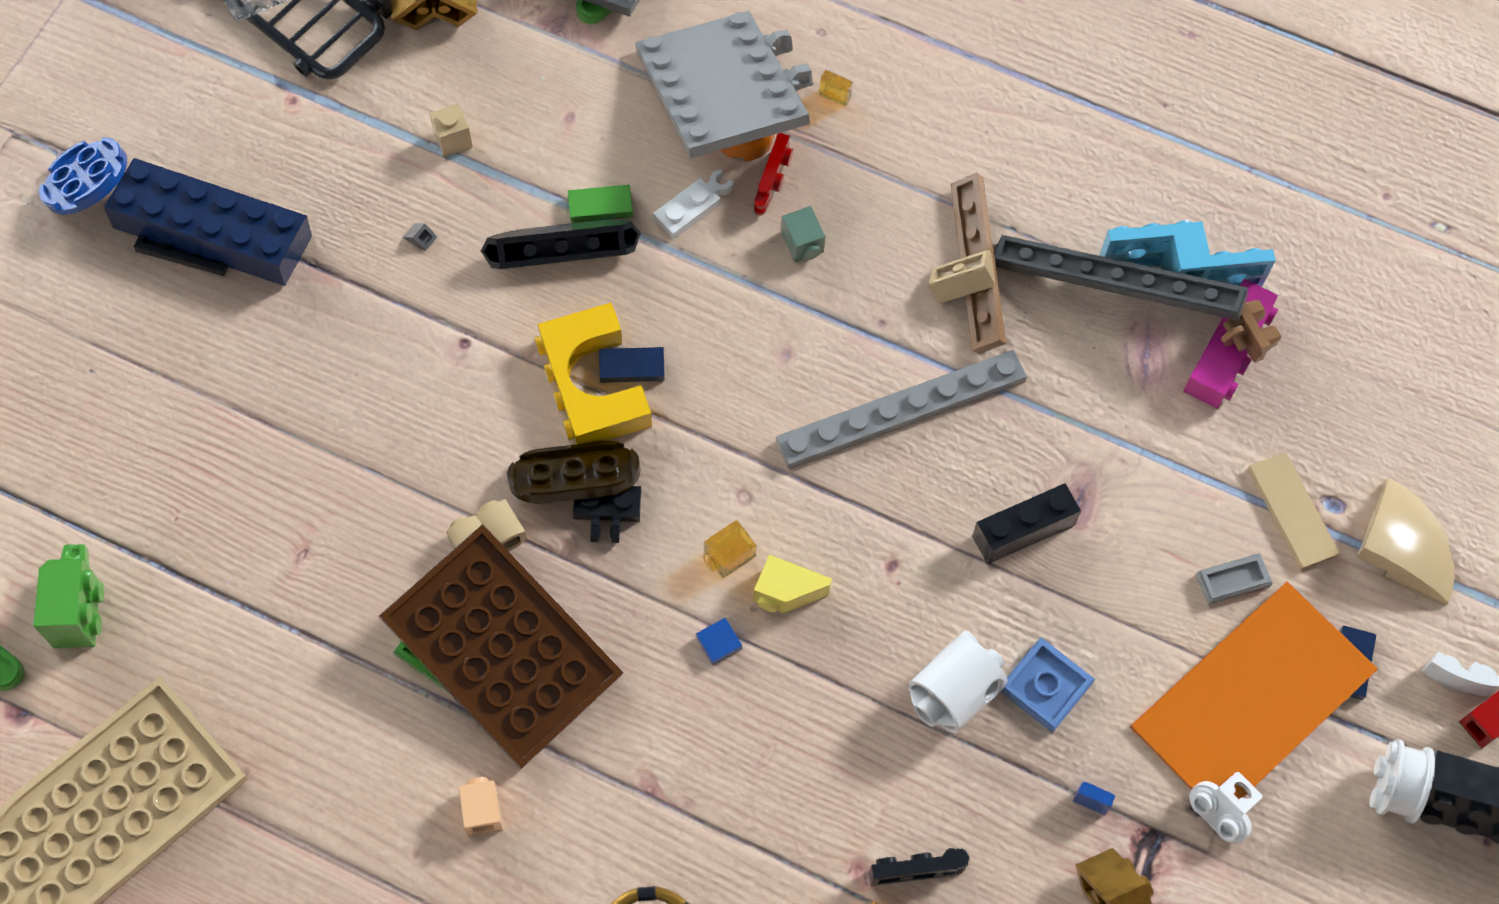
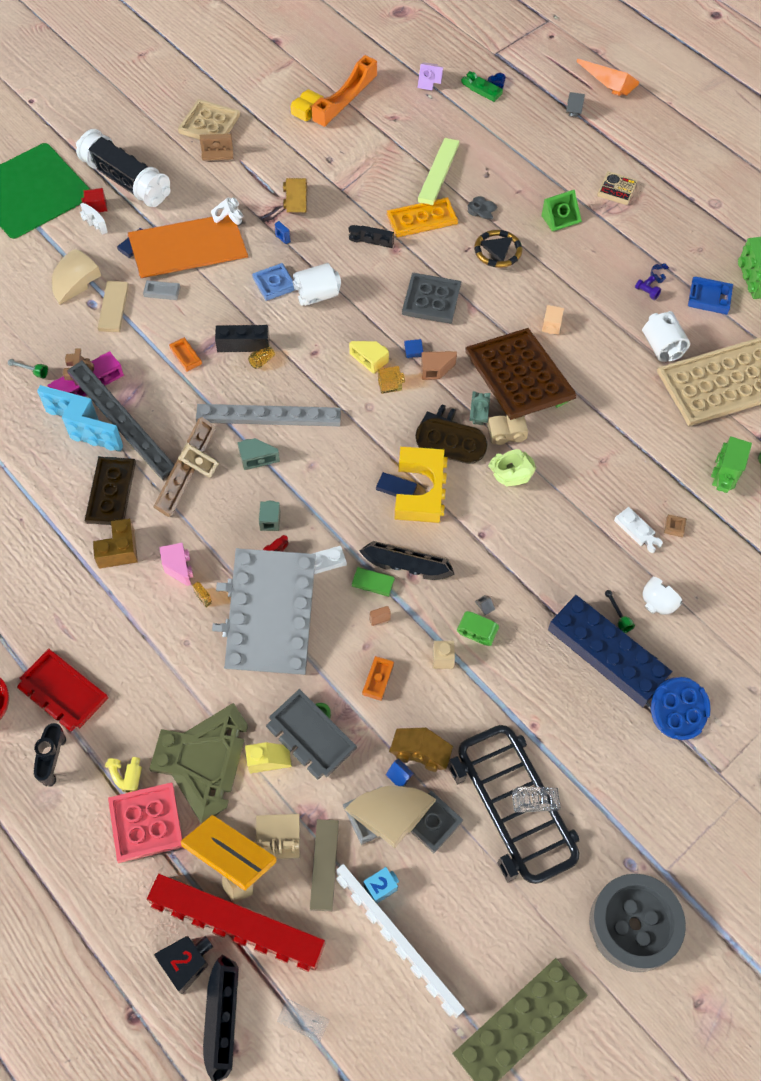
camera: 155 degrees left, 5 degrees down
(145, 328) = (660, 598): none -> white cylinder
(149, 475) = (675, 525): none -> medium nougat tile
(195, 278) = (624, 623): none -> green hinge
(212, 444) = (637, 529): none -> white plate
(243, 841) = (666, 336): none -> white cylinder
(415, 188) = (478, 628): none -> bright green beam
(450, 452) = (516, 473): none -> yellowish green helmet
(531, 73) = (378, 678): none -> orange plate
(549, 552) = (479, 408): none -> sand green hips
(566, 152) = (379, 615): none -> nougat tile
(662, 613) = (437, 364): none -> nougat slope
(733, 766) = (431, 298): none -> dark grey plate
(881, 325) = (257, 453): none -> sand green slope
(898, 114) = (174, 562): none -> bright pink slope
(974, 504) = (260, 358): none -> clear yellow cone
(992, 103) = (118, 549): none -> pearl gold brick
(1066, 190) = (110, 490): none -> dark brown tile
(1107, 466) = (185, 354): none -> orange tile
(1318, 334) = (38, 370): none -> green hinge

